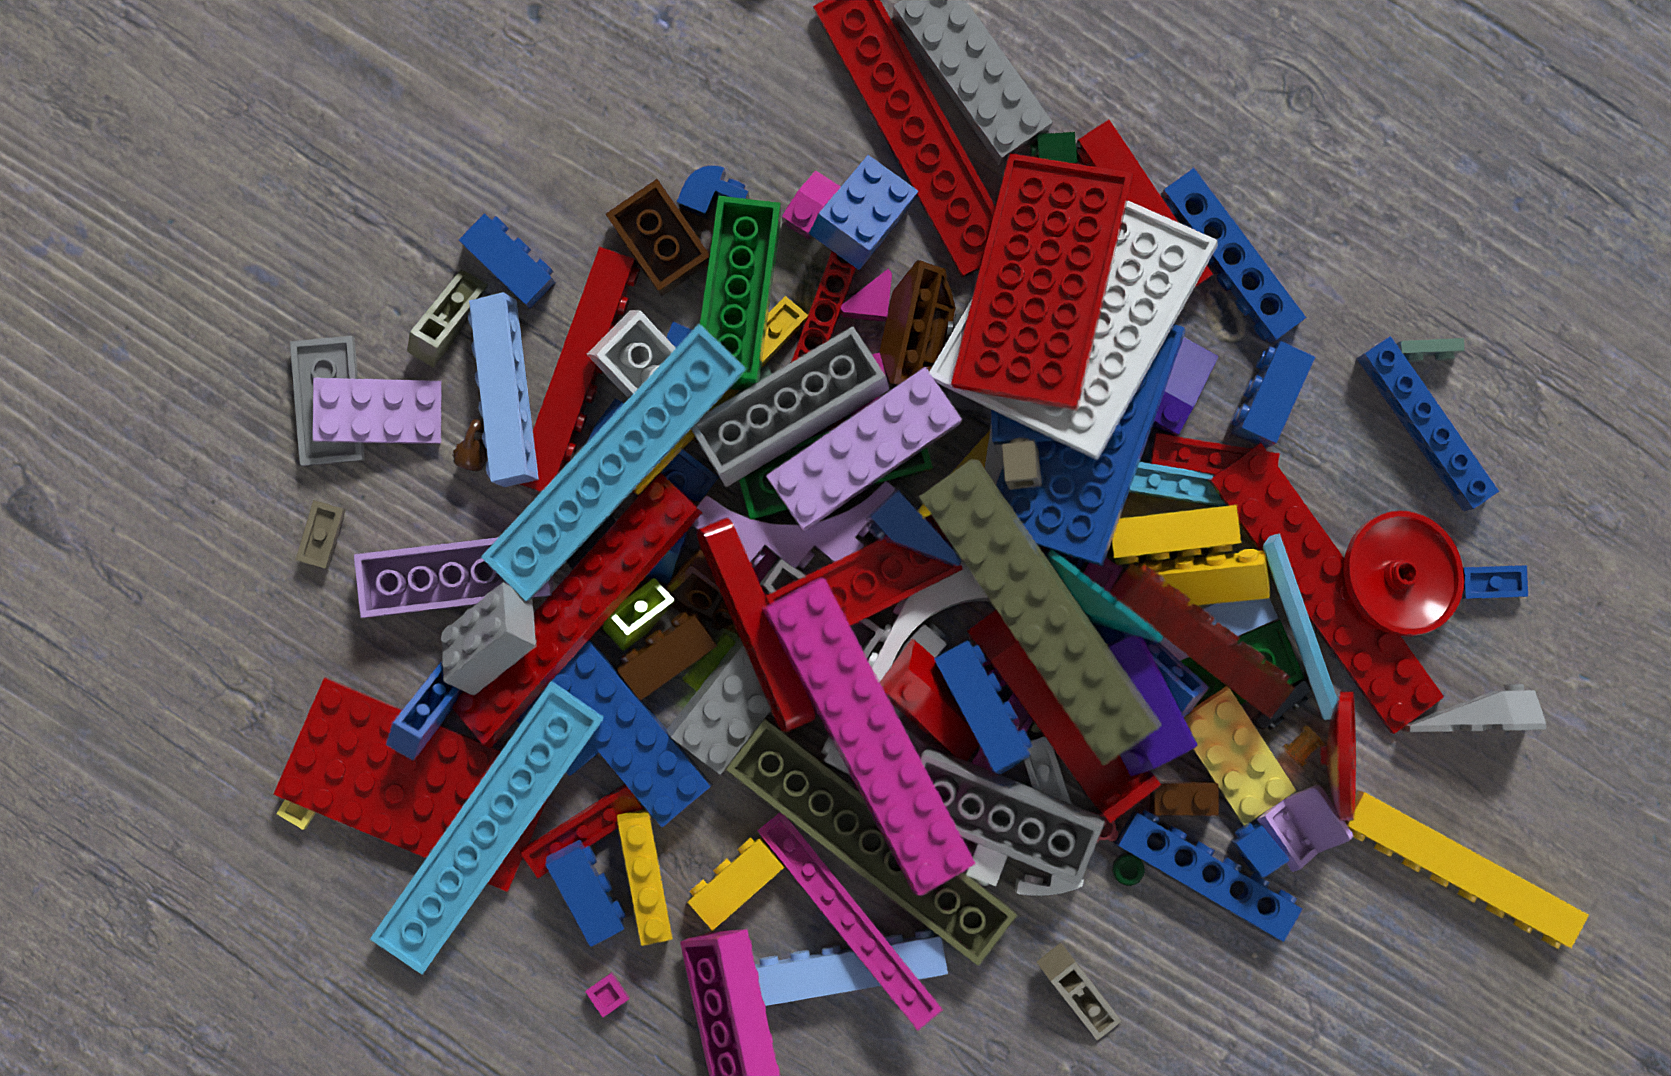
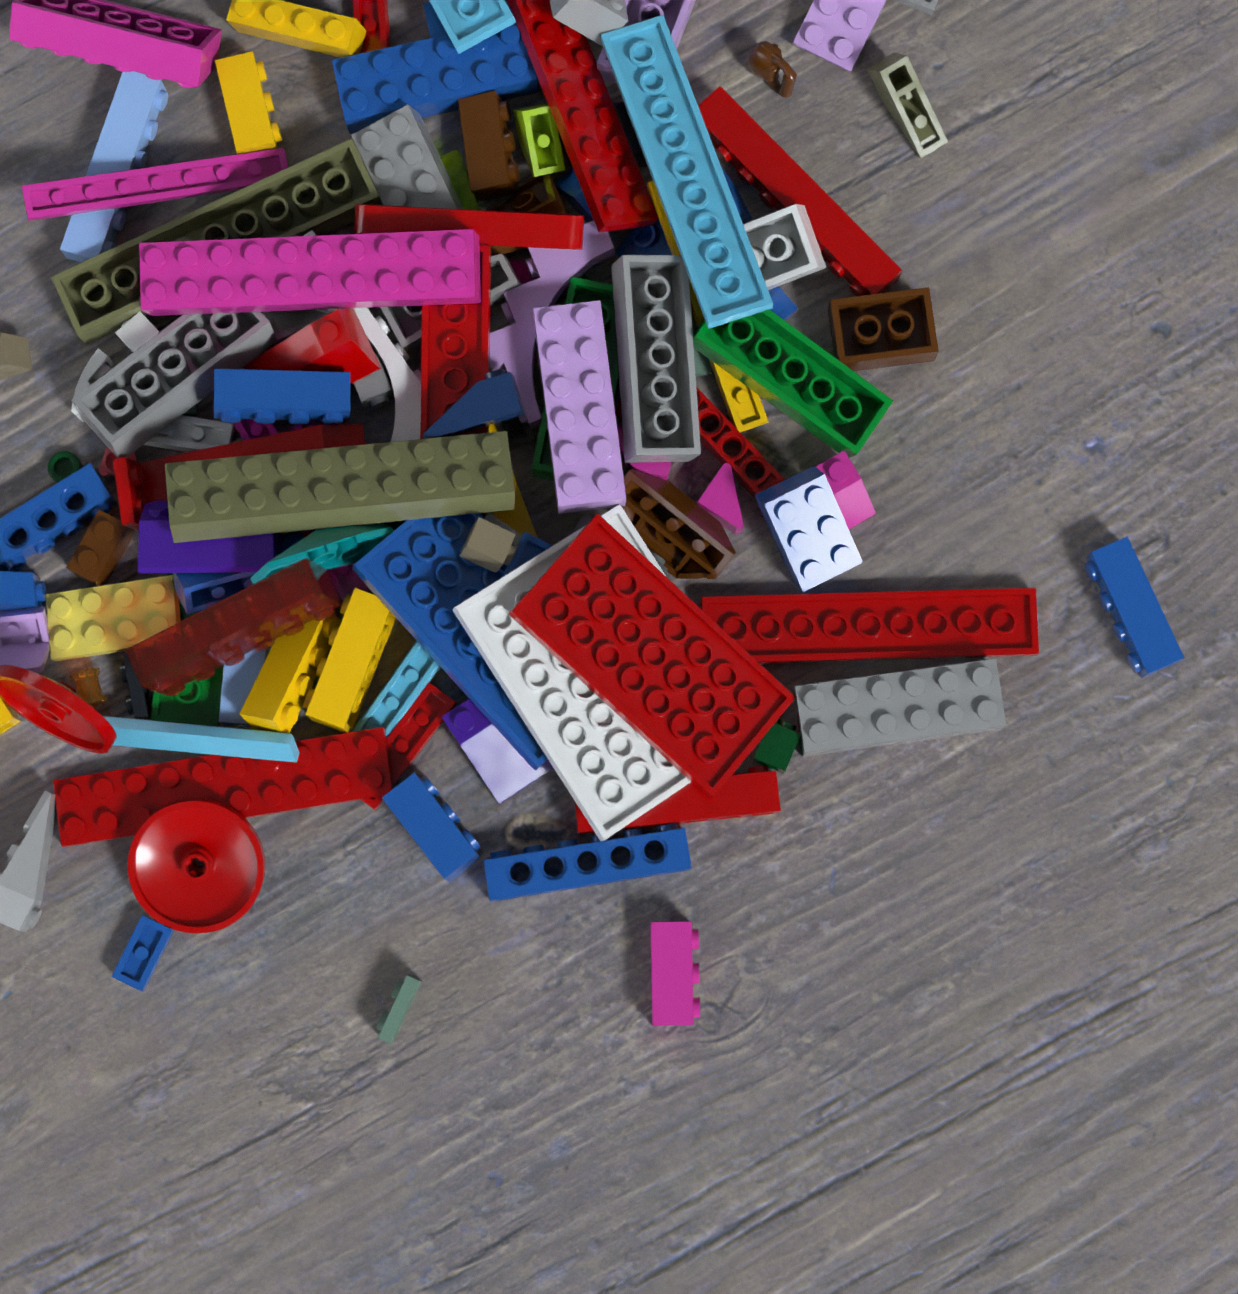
camera: 120 degrees right, 5 degrees down
(503, 390) = (810, 116): light blue brick -> none
(508, 259) = (933, 185): blue brick -> none
(704, 186) = (910, 400): blue brick -> none
(1283, 141) = (674, 973): none -> dark pink brick
(1427, 424) = (326, 967): blue brick -> none

